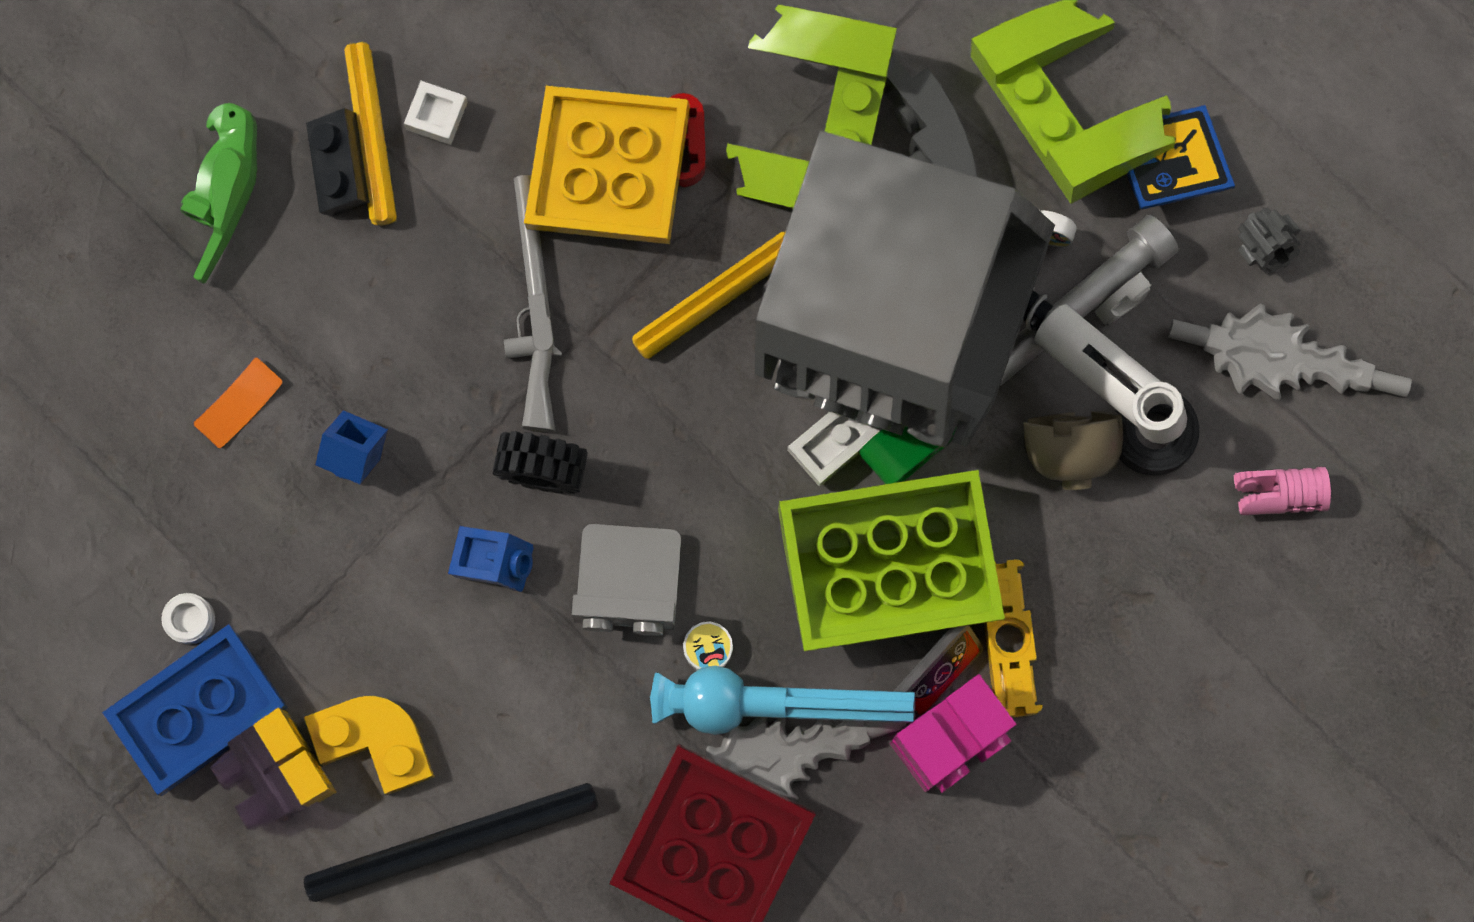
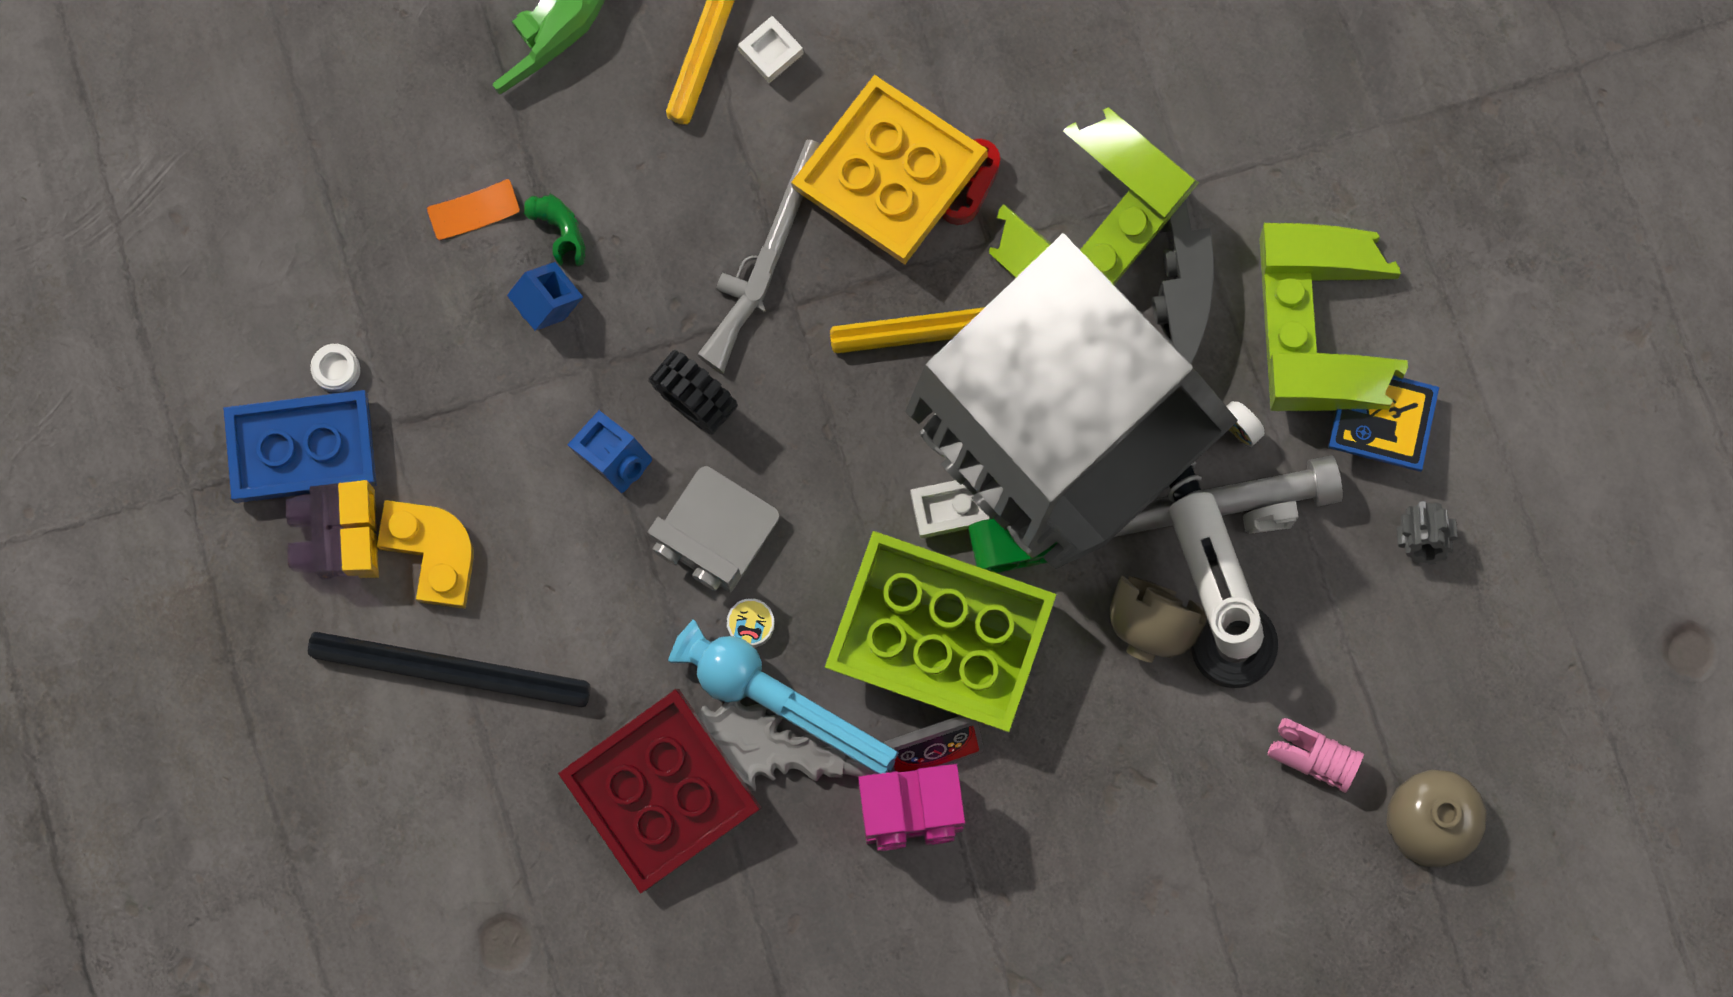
camera: 30 degrees right, 0 degrees up
(320, 365) = (557, 213): none -> green piece
(337, 162) = (665, 49): black plate -> none
(1011, 672) = (994, 783): yellow piece -> none
(1271, 352) = (1377, 632): light grey piece -> none
(1418, 489) = (1436, 818): none -> dark tan cylinder

